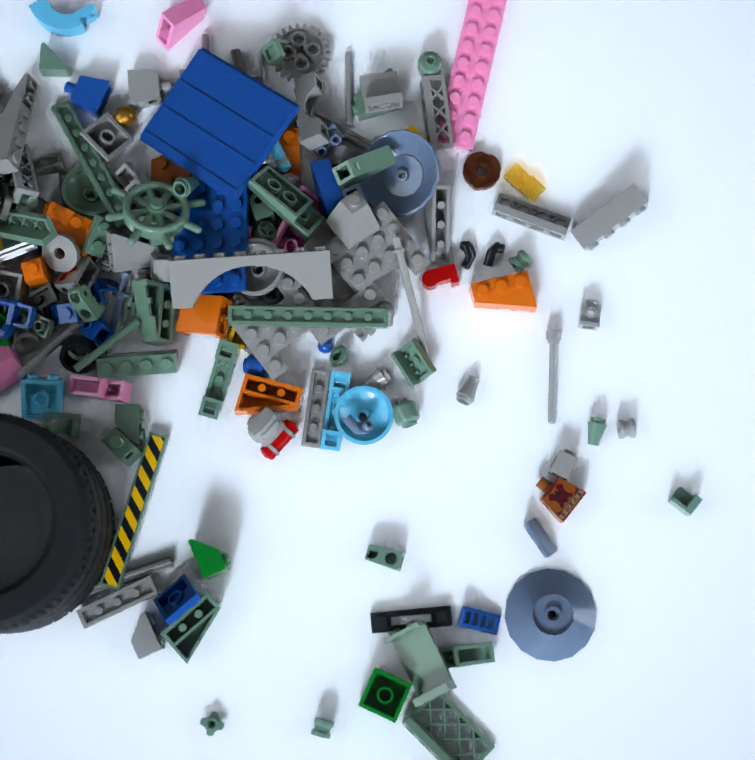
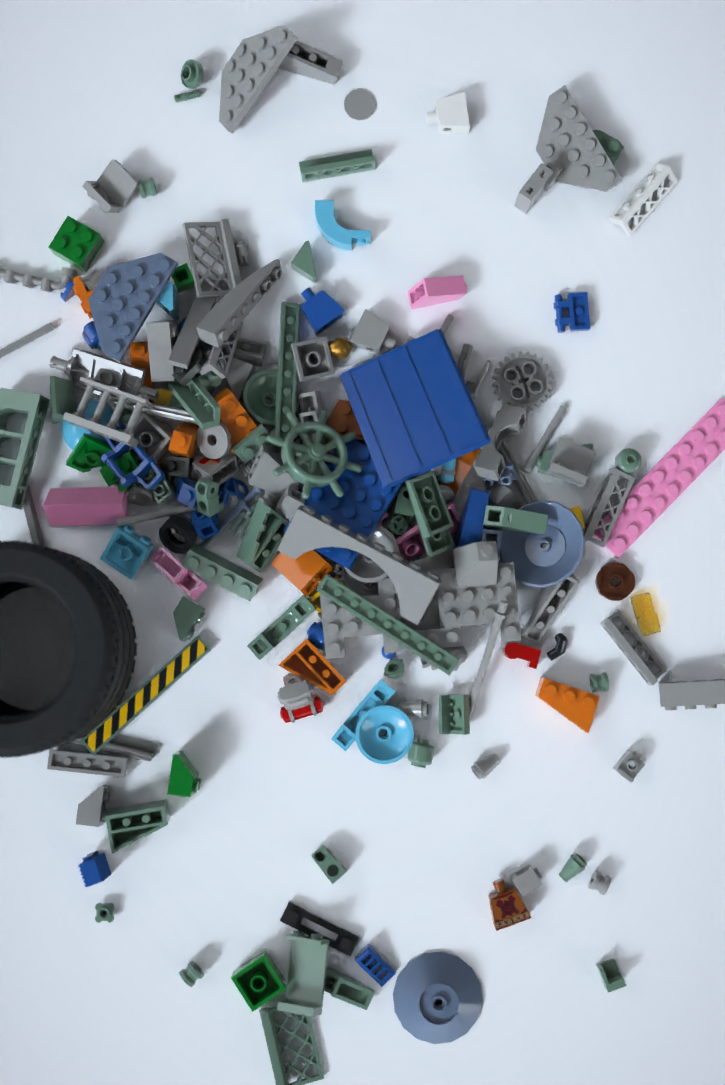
camera: 30 degrees right, 5 degrees up
(62, 423) = (130, 585): sand green leg -> none
(106, 345) = (204, 543): sand green bar -> none
(121, 446) = (166, 634): sand green torso -> none
(177, 599) = (136, 795): blue plate -> none
(178, 687) = (94, 868): none -> blue brick
(184, 186) = (351, 448): sand green cone -> none
(274, 52) = (499, 371): sand green panel -> none
(316, 408) = (348, 701): light grey tile -> none
(358, 427) = (372, 743): sand blue arm -> none
(497, 247) = (580, 658): black arm -> none
(540, 538) = (469, 929): sand blue slope -> none
(553, 338) = (585, 767): light grey piece -> none

